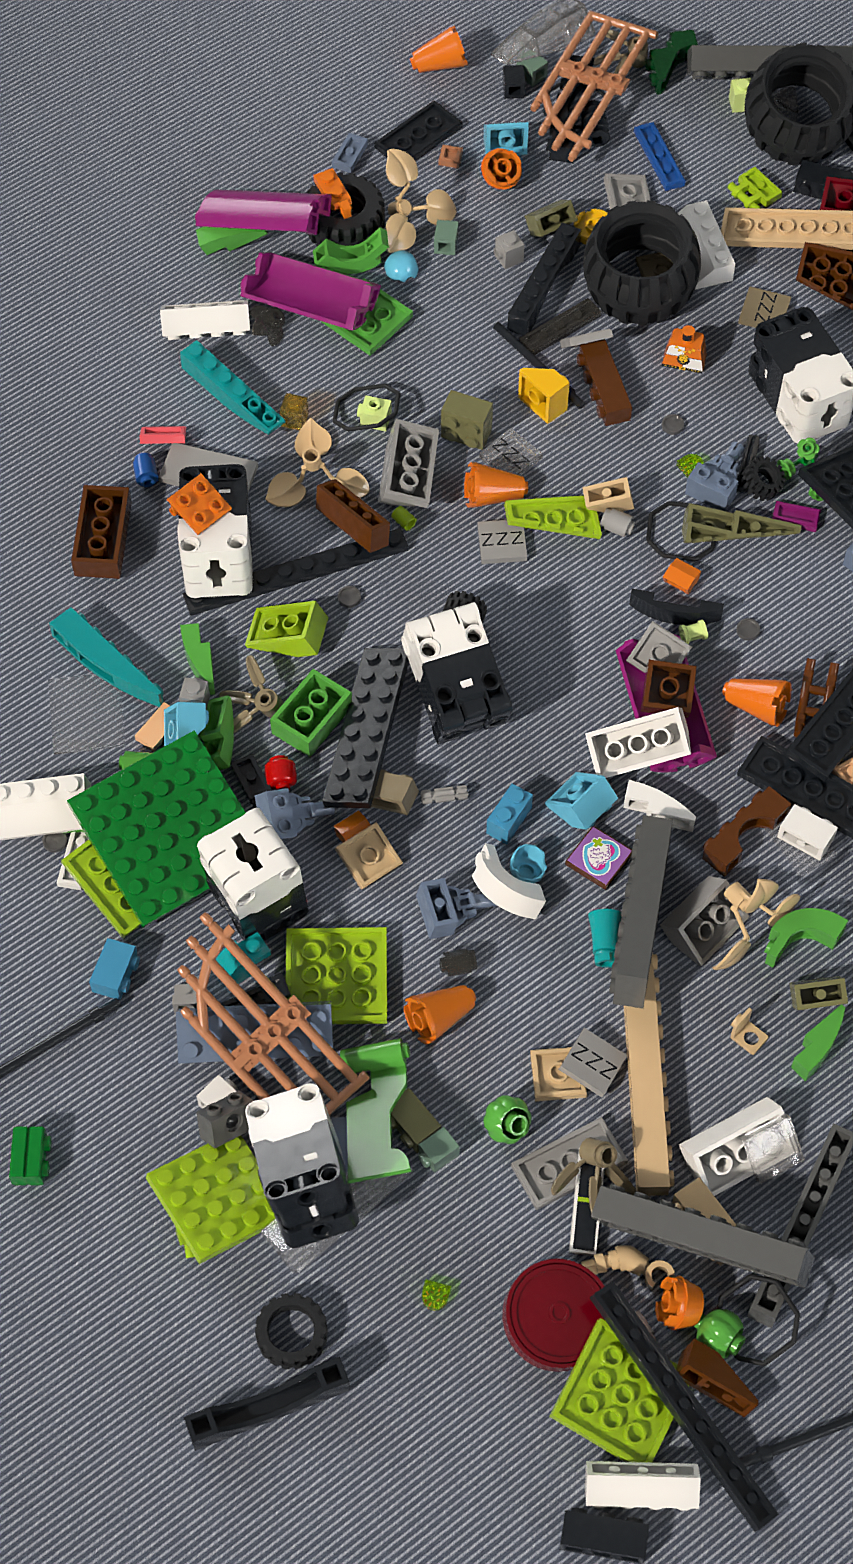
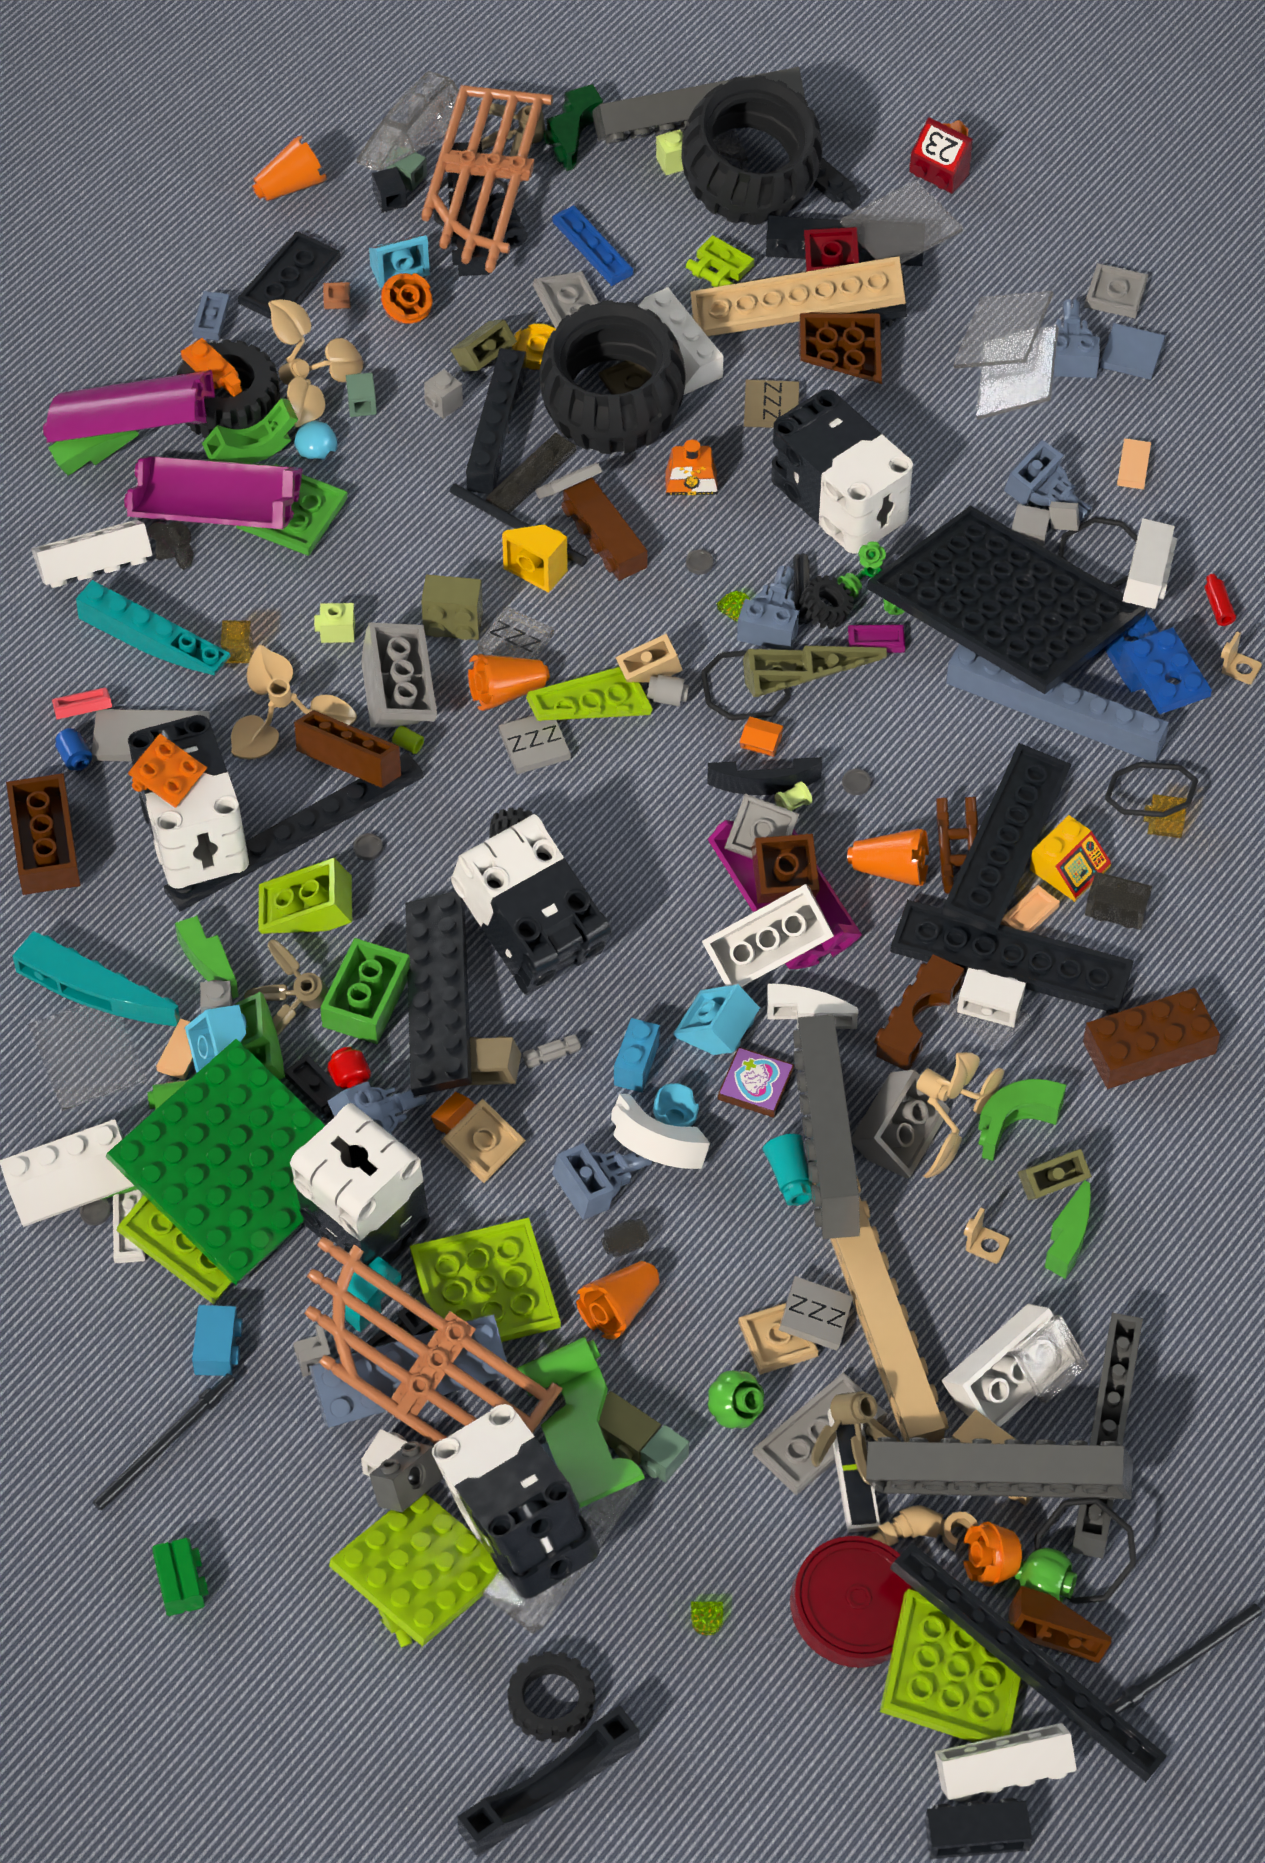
camera: 15 degrees left, 5 degrees down
(369, 426) = (332, 640): black piece -> none

